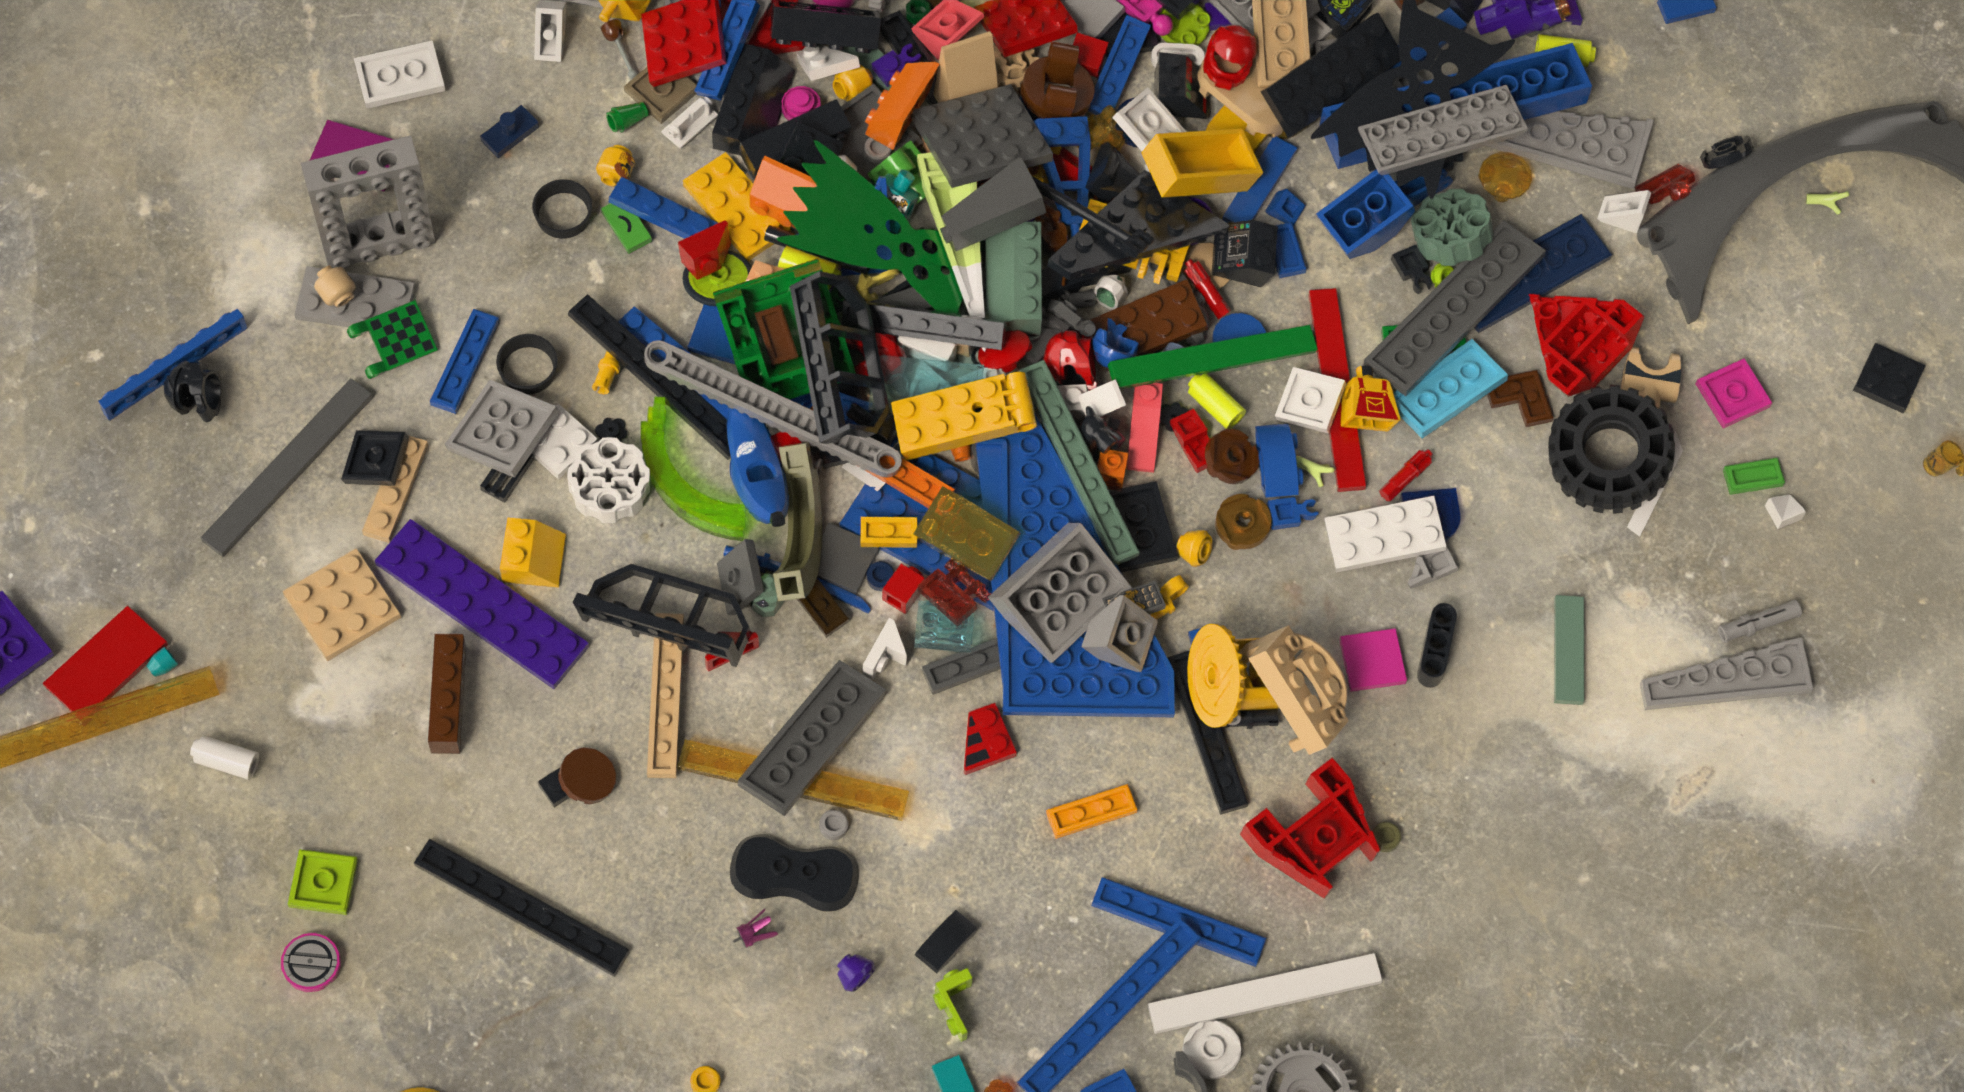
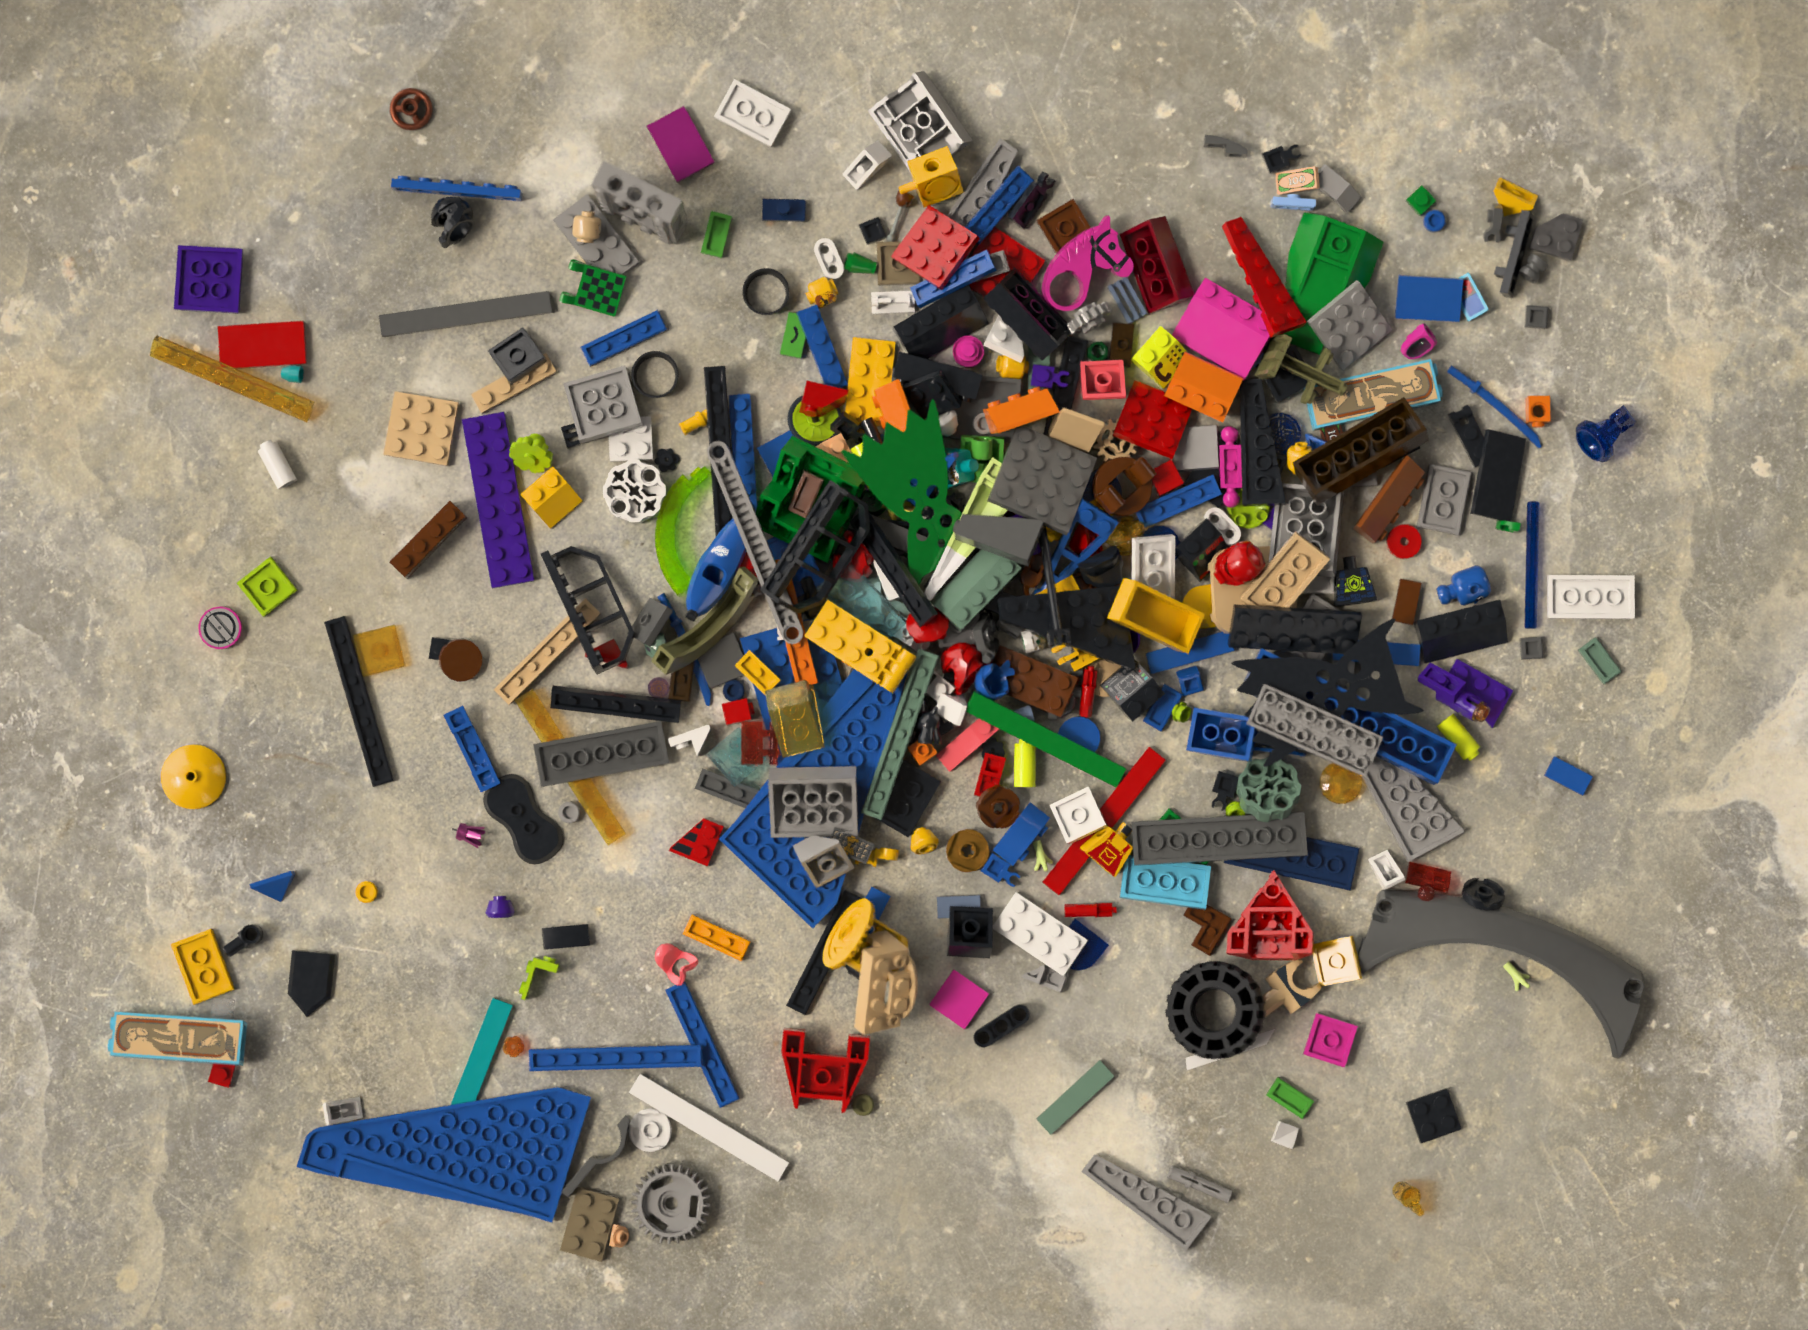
camera: 45 degrees right, 20 degrees up
(54, 323) = (420, 95): none -> copper piece
(466, 202) = (716, 234): none -> bright green tile
(475, 528) = (531, 453): none -> lime plant
(496, 841) = (379, 650): none -> clear yellow plate
(595, 134) = (829, 259): none -> white plate
(610, 82) = (872, 230): none -> black tile
(678, 849) = (472, 748): none -> blue slope
(755, 250) = (848, 427): none -> black plate
(779, 683) = (615, 704): none -> black plate
(806, 636) = (658, 687): none -> tile
(1062, 868) = (667, 955): none -> coral piece
(1286, 579) = (944, 903): none -> sand blue tile
(1307, 237) = (1181, 712): none -> lime plate
(1322, 587) = (970, 932): none -> black slope
(1667, 320) = (1336, 961): none -> tile

